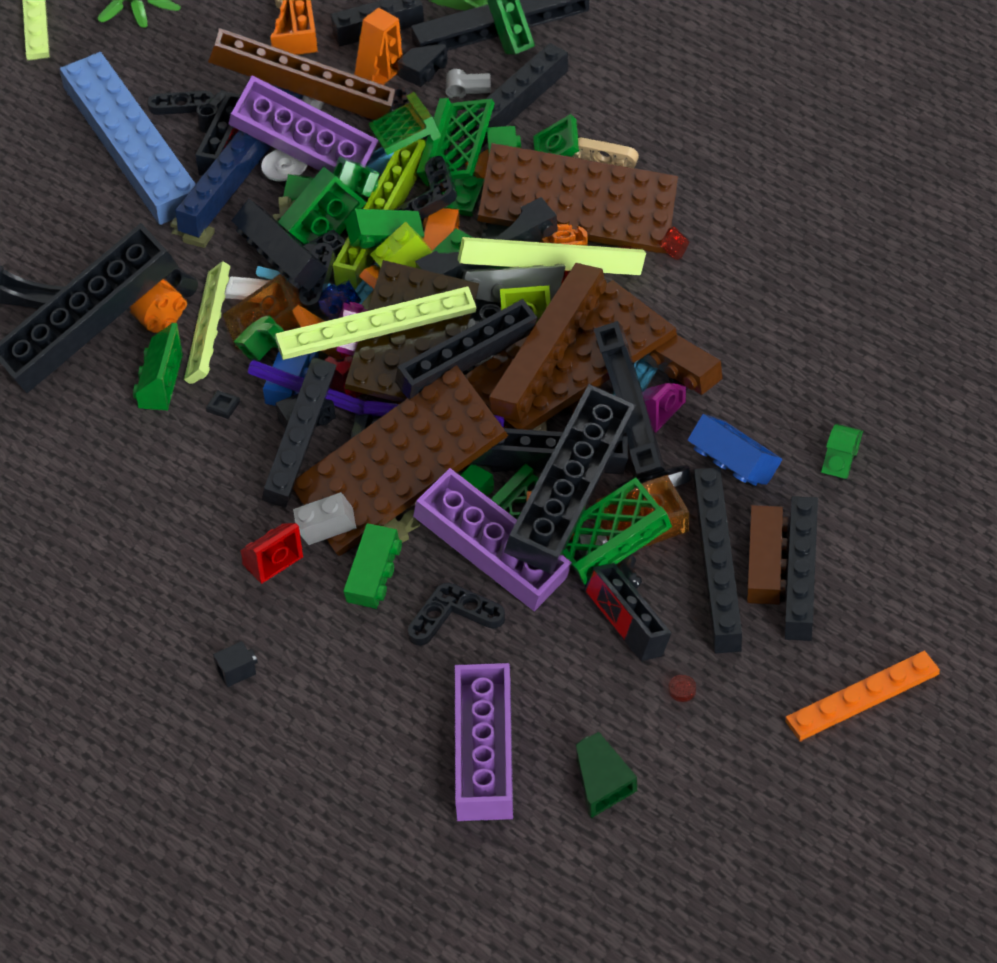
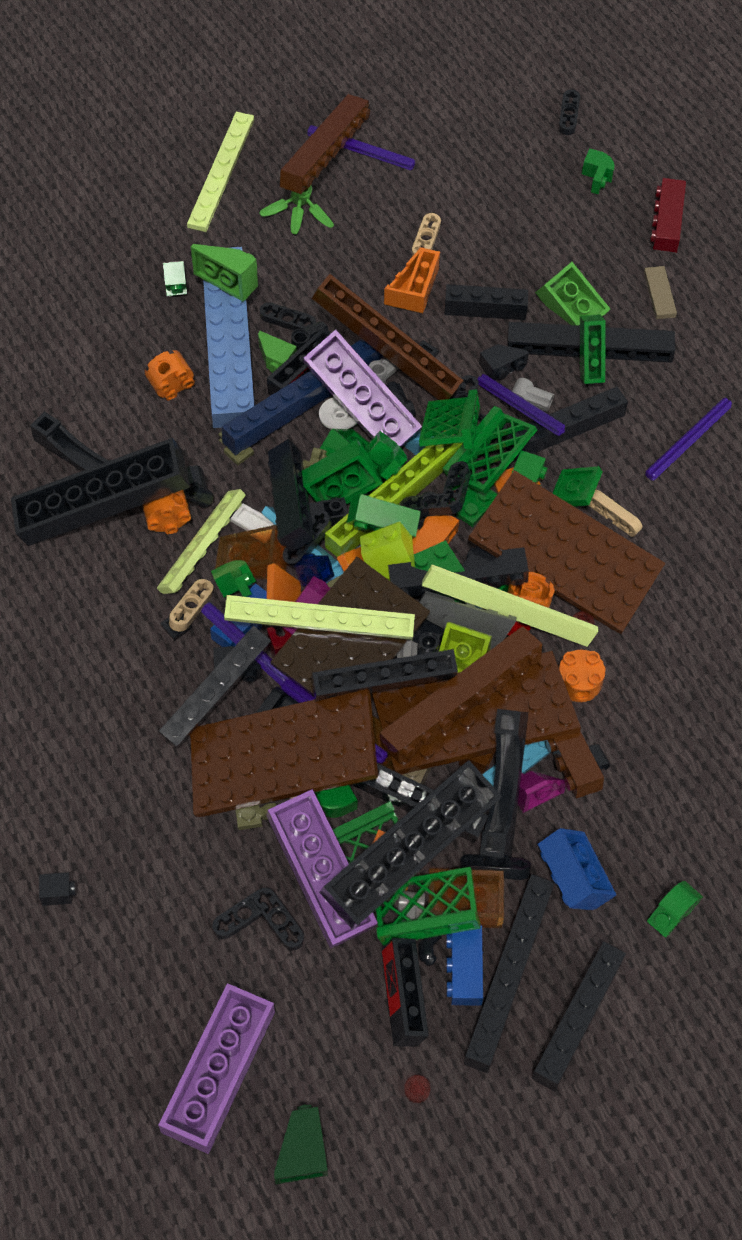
camera: 20 degrees right, 10 degrees up
(43, 105) = (174, 278): none -> brick
(90, 189) = (169, 374): none -> orange brick
(100, 70) = (226, 269): none -> bright green slope
(159, 370) = (138, 573): green slope -> none
(185, 133) = (274, 350): none -> bright green slope
(232, 386) = (190, 613): none -> tan beam
(273, 552) = (139, 792): red slope -> none
(325, 518) = (194, 783): light grey brick -> none
(372, 566) = (213, 845): green brick -> none
(379, 47) = (466, 337): orange wedge -> none
(465, 90) = (521, 405): none -> dark purple axle
(641, 68) = (688, 439): none -> dark purple axle
(653, 290) = (582, 674): none -> orange brick
(673, 571) = (465, 967): none -> blue brick
(674, 243) = (630, 629): clear red tile -> none
(765, 555) = (554, 986): reddish brown brick -> none
(862, 695) = (571, 1172): orange plate -> none

